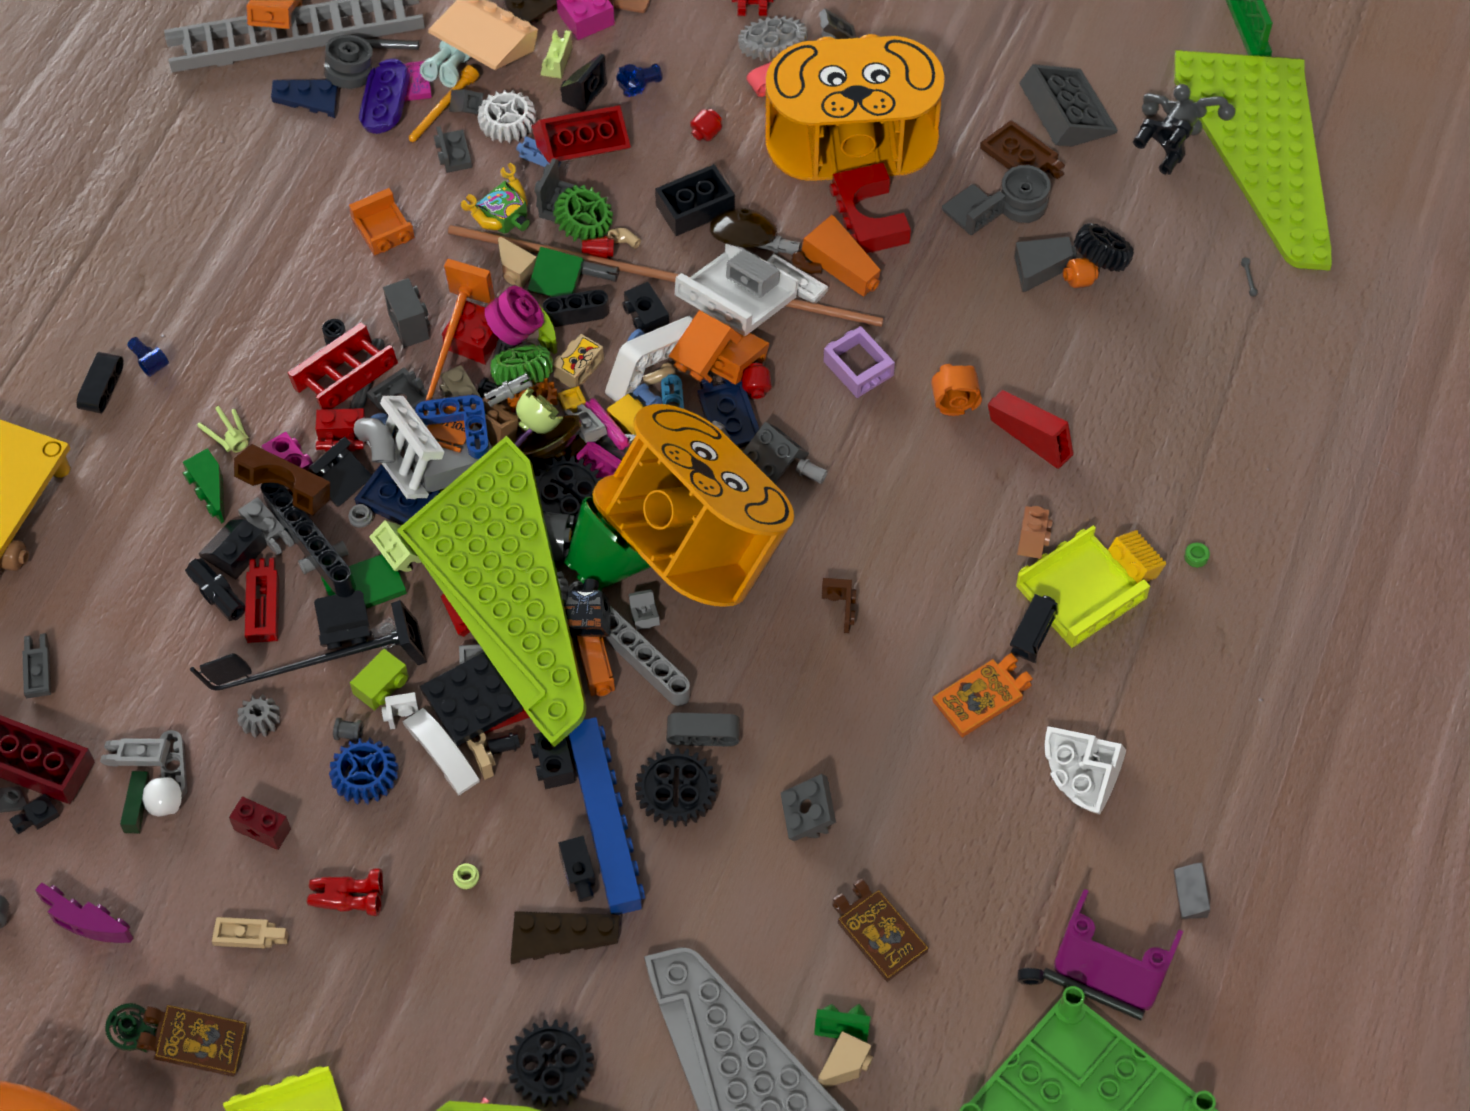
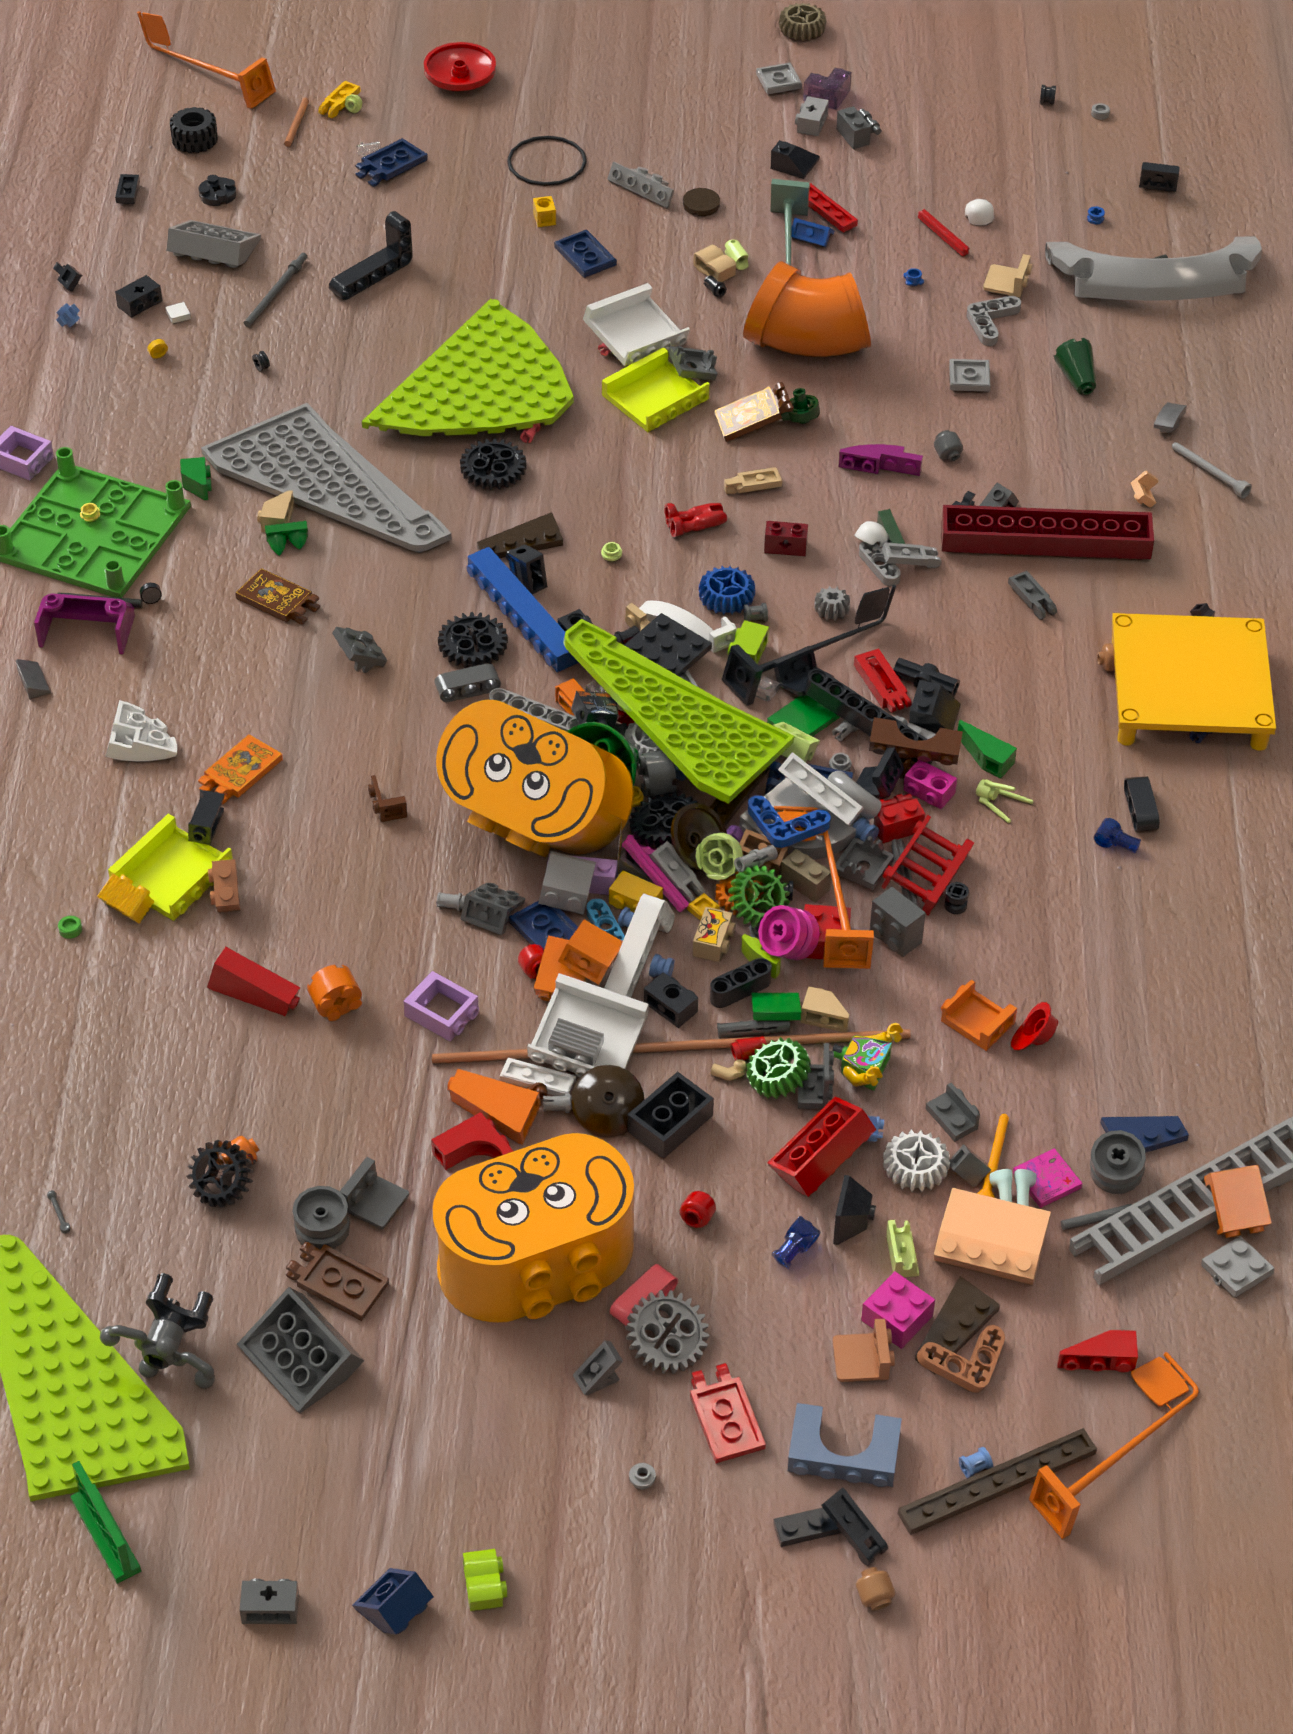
camera: 160 degrees right, 10 degrees down
(343, 190) = (1036, 1028): none -> red piece
(384, 96) = (1058, 1146): dark purple tile -> none
(1042, 260) = (283, 1158): dark grey slope -> none

